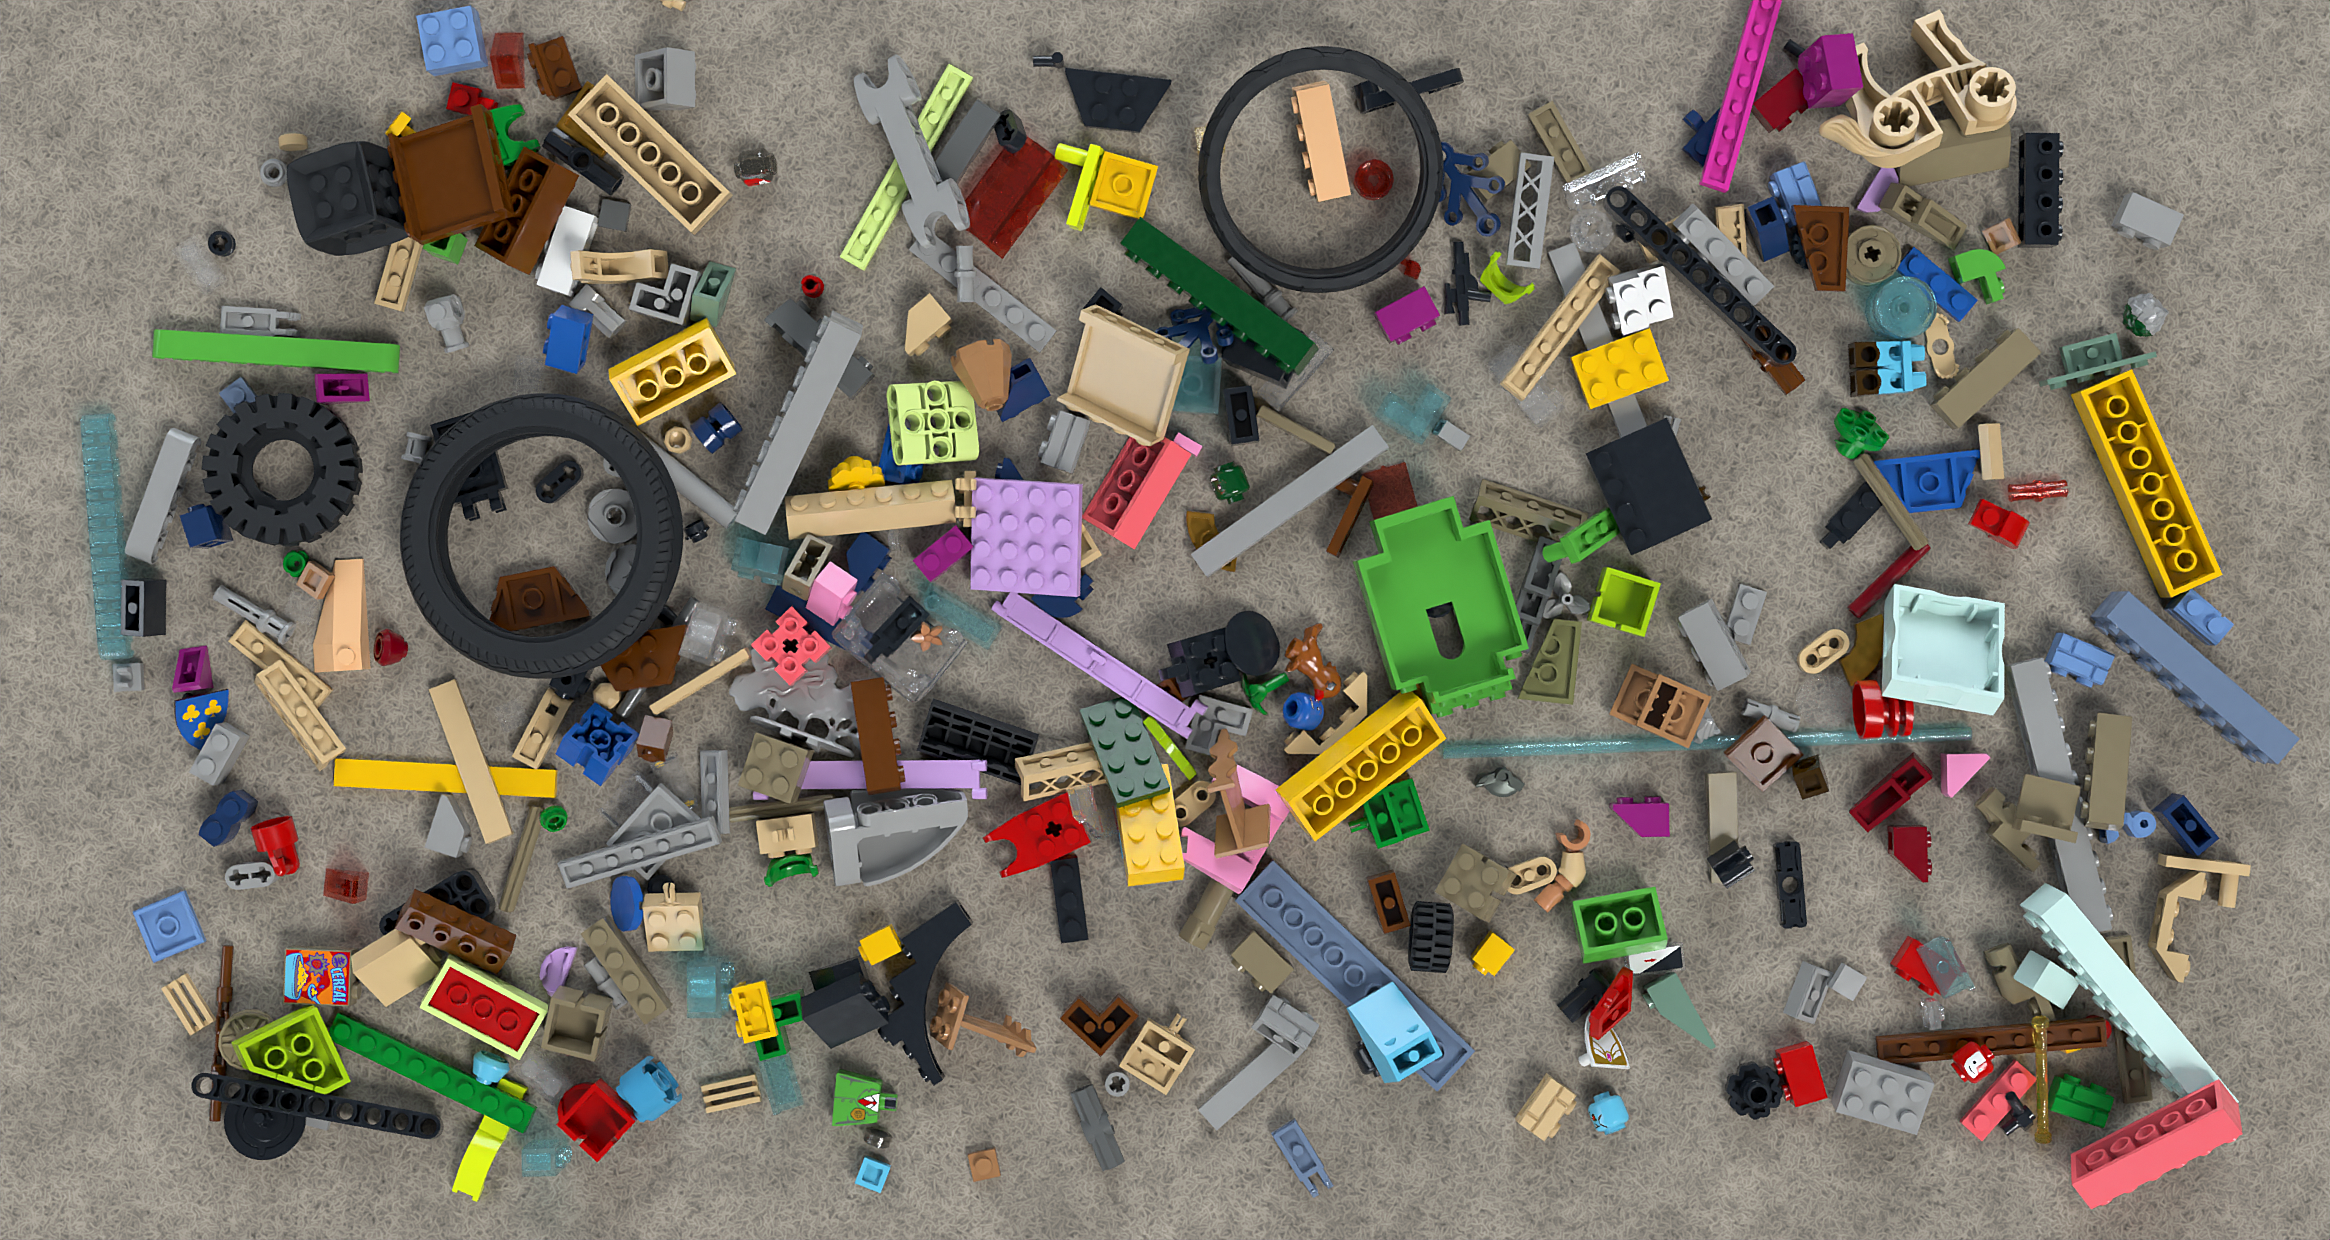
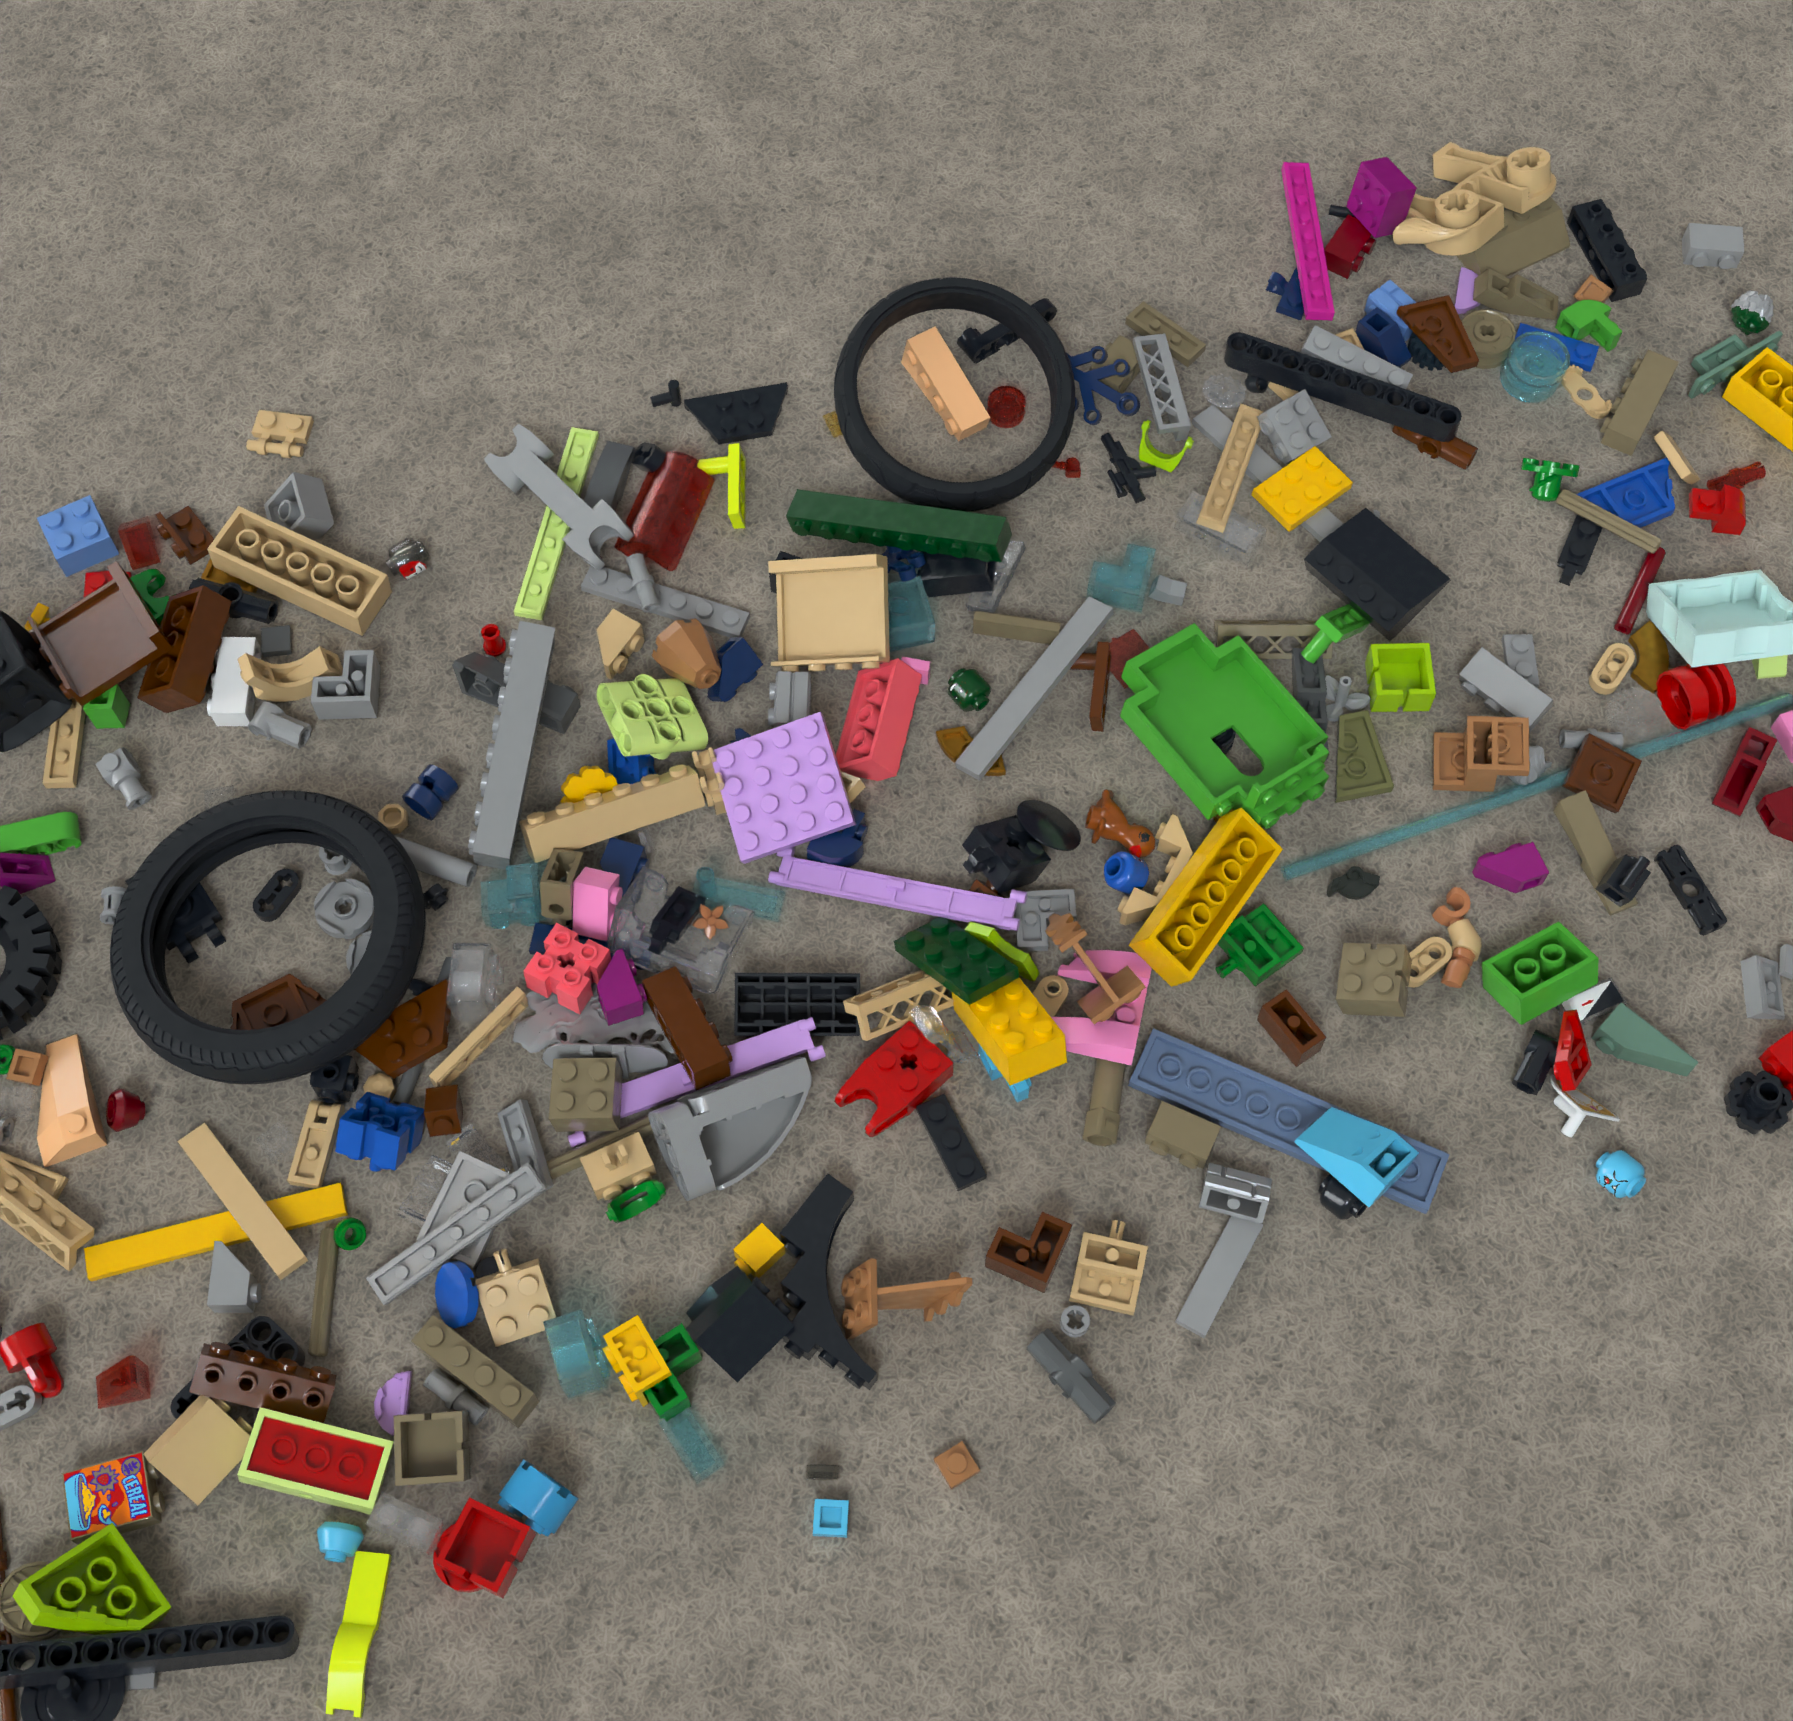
camera: 20 degrees left, 25 degrees down
(431, 1072) = (273, 1571): green plate -> none
(545, 1157) = (432, 1621): clear light blue brick -> none
(568, 339) = (254, 753): blue brick -> none
(671, 371) = (370, 748): yellow brick -> none
(712, 293) = (393, 679): sand green slope -> none
(754, 1088) = (644, 1490): tan tile -> none
(829, 682) = (618, 991): none -> magenta slope
(859, 1099) = (788, 1433): bright green torso -> none
(943, 554) = (702, 838): magenta brick -> none
(1123, 185) = (771, 476): yellow plate -> none
(1241, 415) = (958, 627): black brick -> none
(1258, 692) = (1072, 867): green plant -> none
(1301, 1155) = (1311, 1333): sand blue hinge -> none
(1407, 315) = (1083, 503): magenta brick -> none
(1430, 937) = (1352, 1044): black tyre -> none
(1491, 954) = (1421, 1049): yellow brick -> none
(1546, 1108) = (1552, 1190): tan brick -> none
(1598, 183) = (1211, 353): clear plate -> none
(1810, 777) = (1659, 777): dark brown brick -> none
(1894, 365) = (1544, 419): hips -> none

